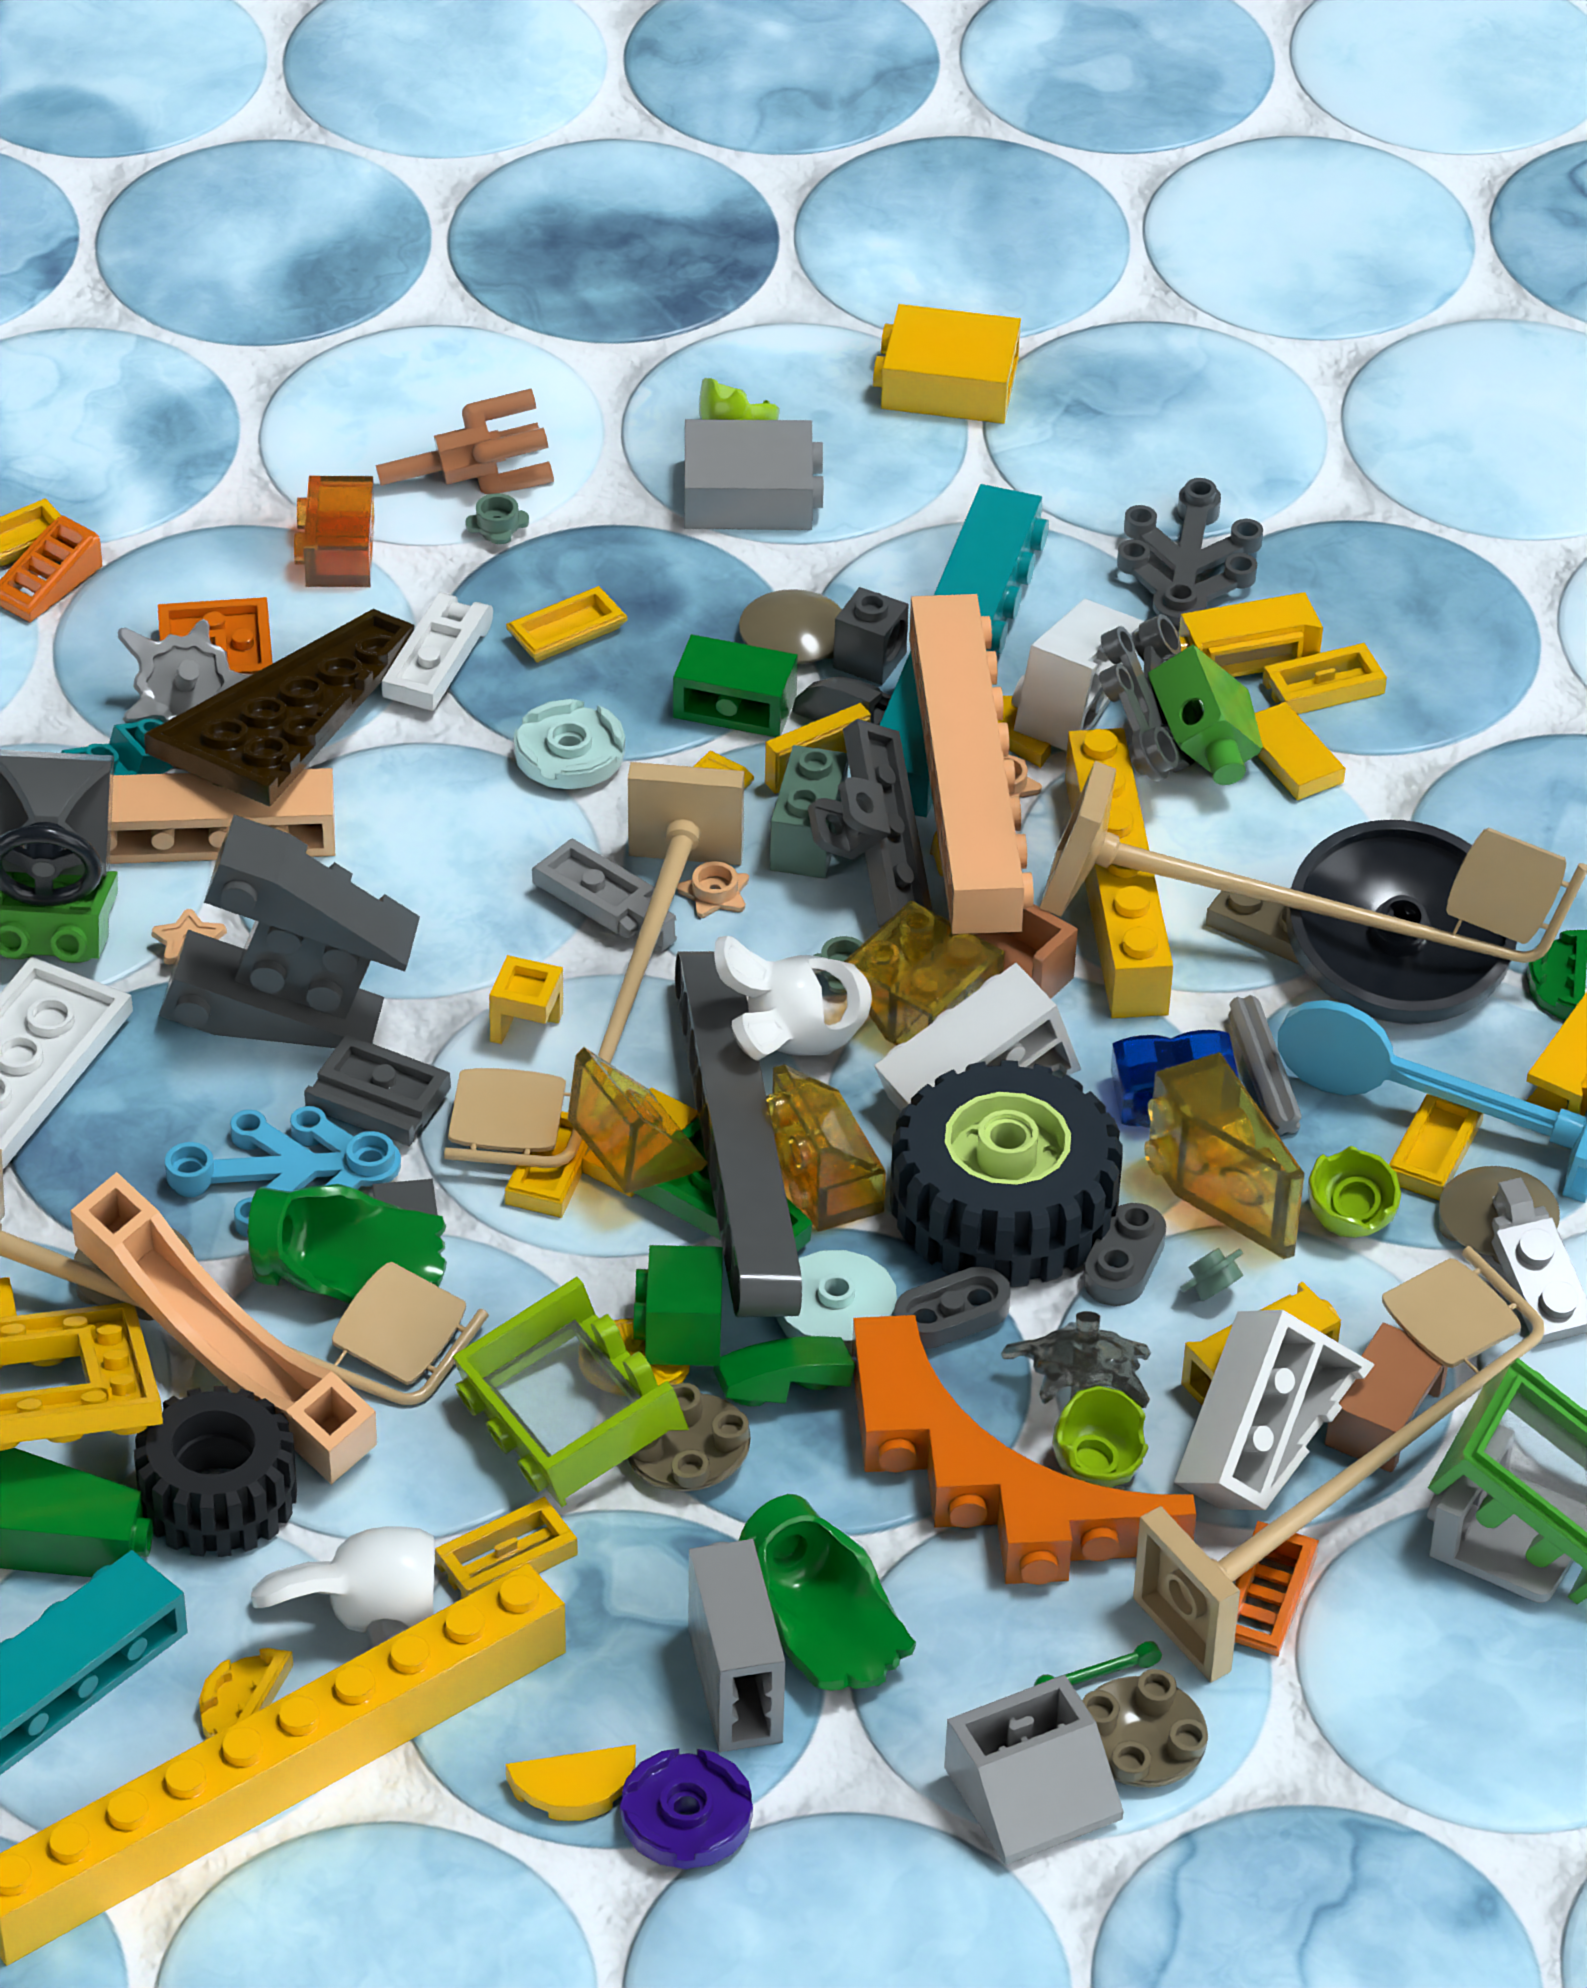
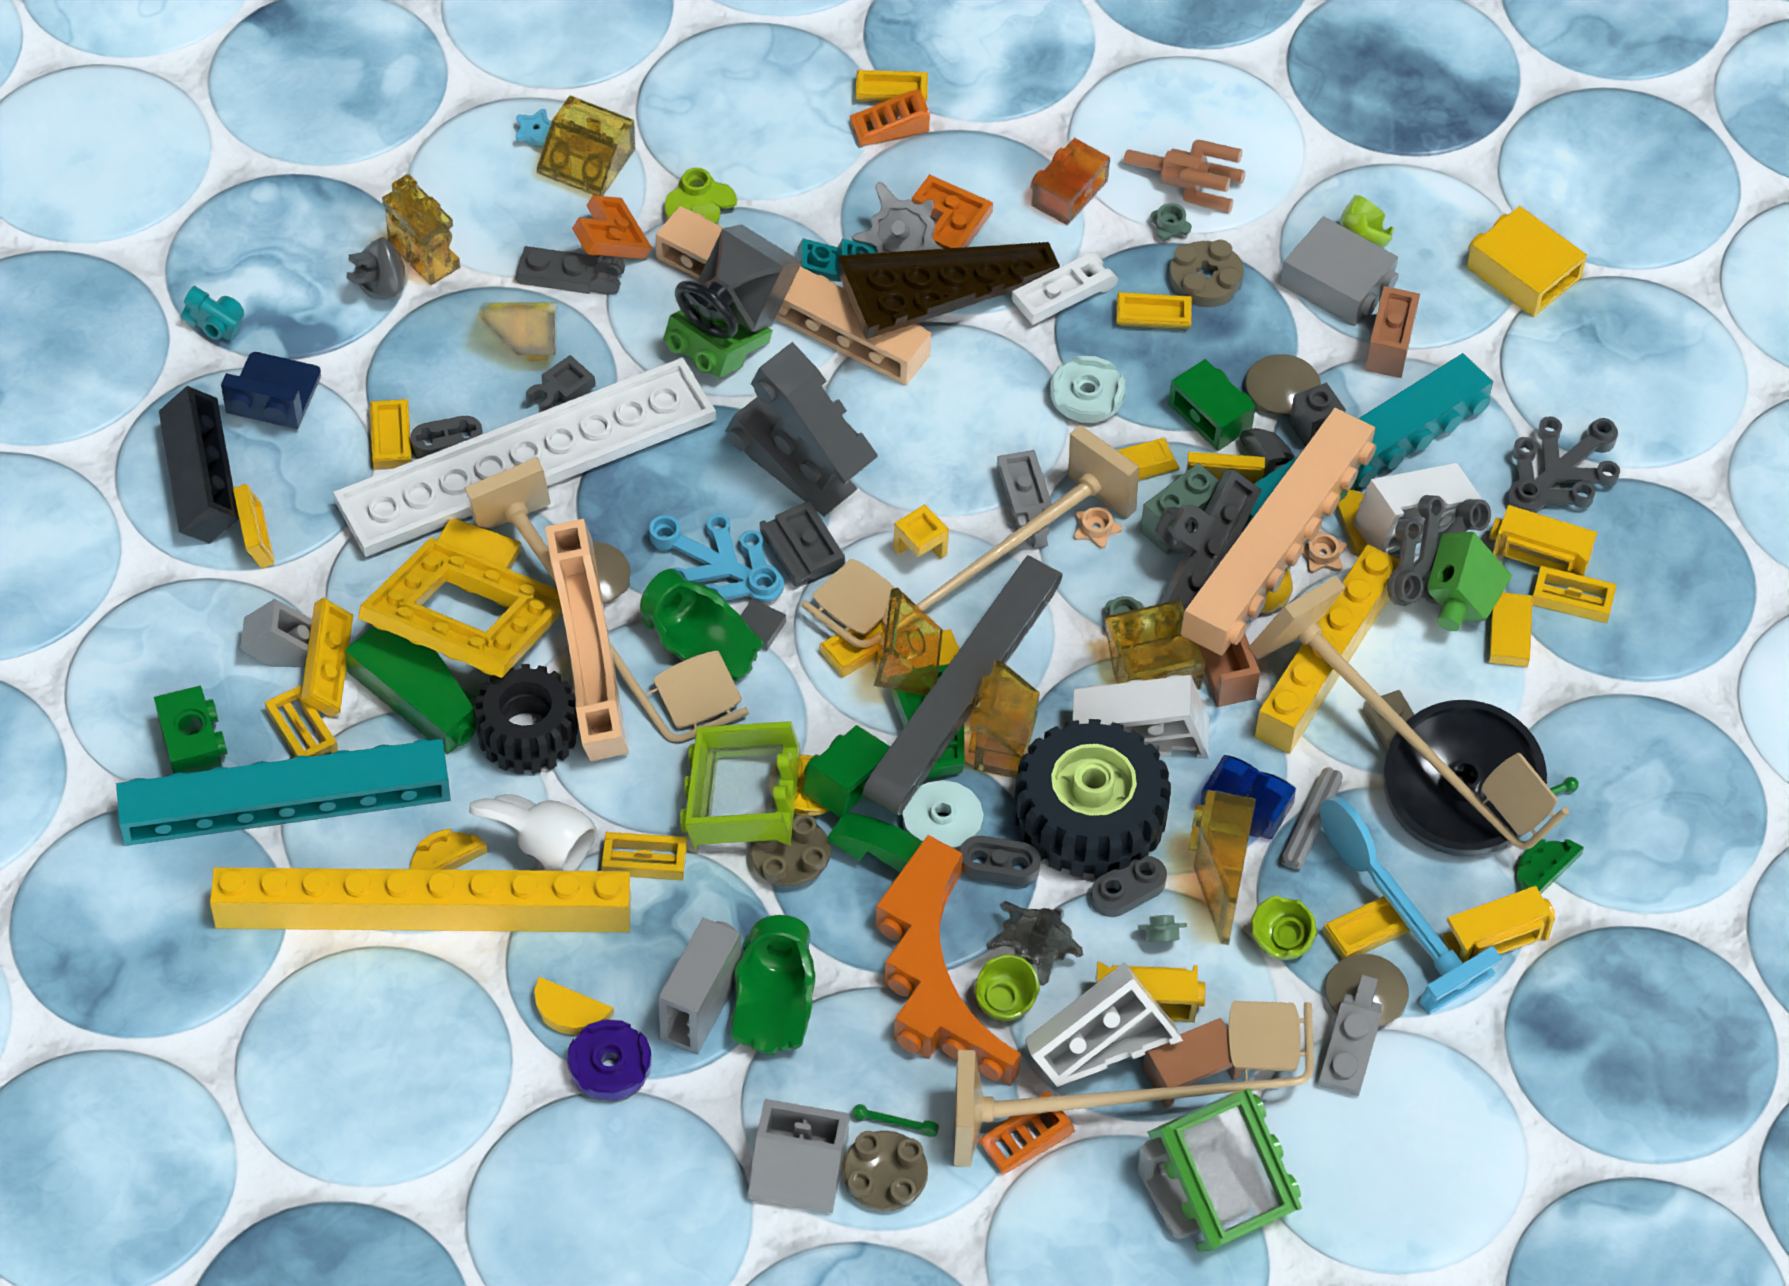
camera: 35 degrees right, 10 degrees up
(590, 532) = (1210, 256): none -> dark tan plate
(788, 1001) = (1051, 621): white piece -> none
(879, 502) = (1392, 332): none -> nougat panel

